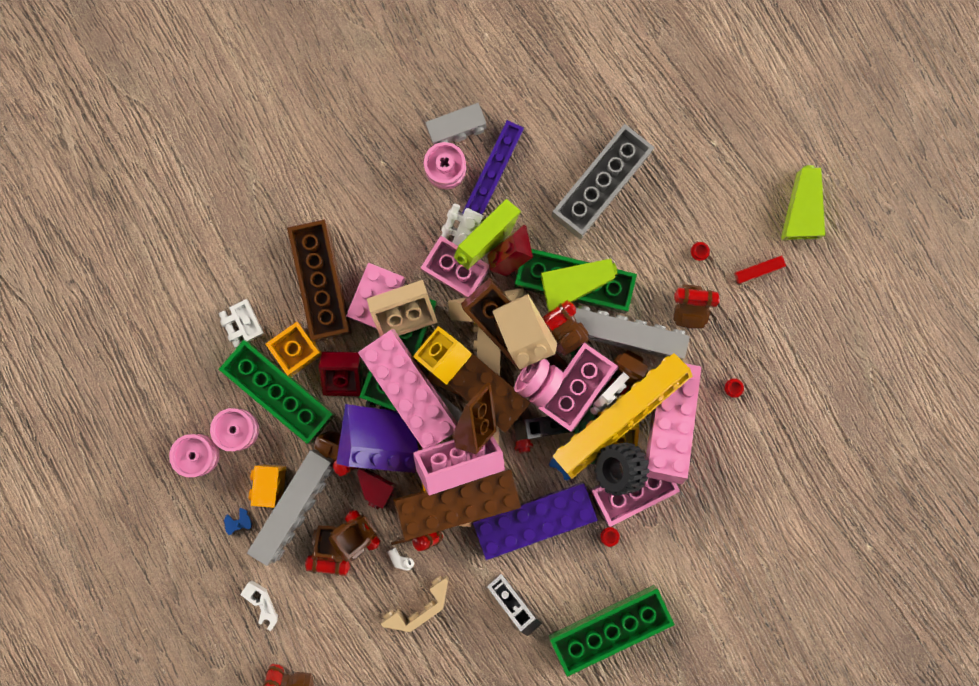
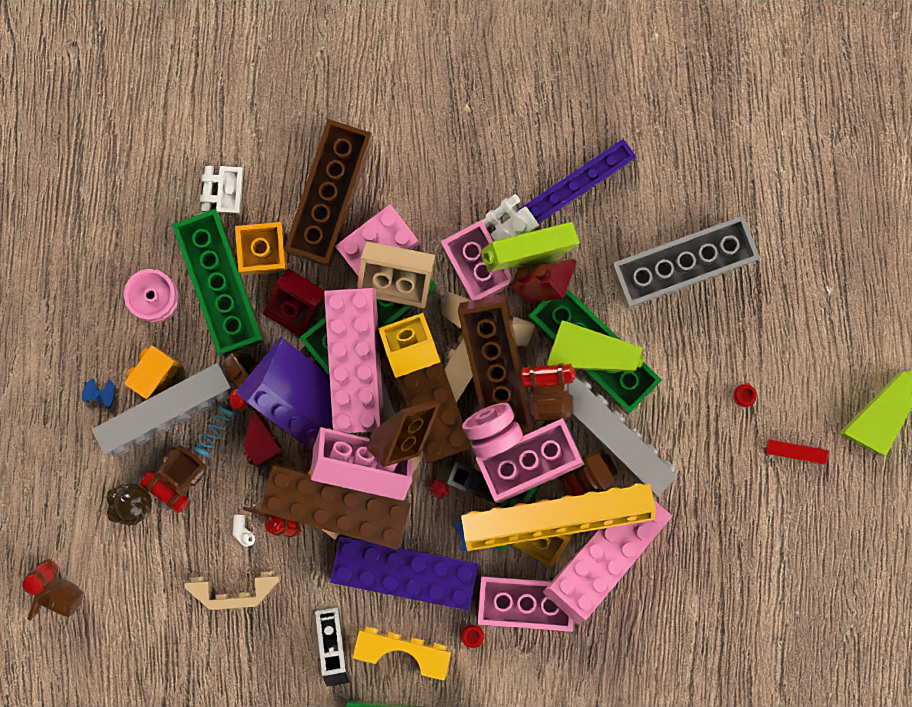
camera: 30 degrees right, 0 degrees up
(183, 454) = (86, 288): bright pink wheel -> none
(265, 603) = (78, 493): white piece -> none
(302, 592) = (123, 505): none -> dark brown hair
(338, 519) = (228, 413): none -> medium azure piece
(353, 537) = (210, 478): reddish brown piece -> none
(441, 155) = (536, 137): bright pink wheel -> none
(457, 125) = (566, 114): light grey brick -> none
(525, 332) = (507, 371): tan slope -> none
(544, 585) = (431, 659): none -> yellow arch
(609, 394) = (558, 487): white plate -> none
(633, 466) = (538, 571): black tyre -> none
(693, 306) = (702, 448): reddish brown piece -> none
(734, 388) = (695, 559): red plate -> none

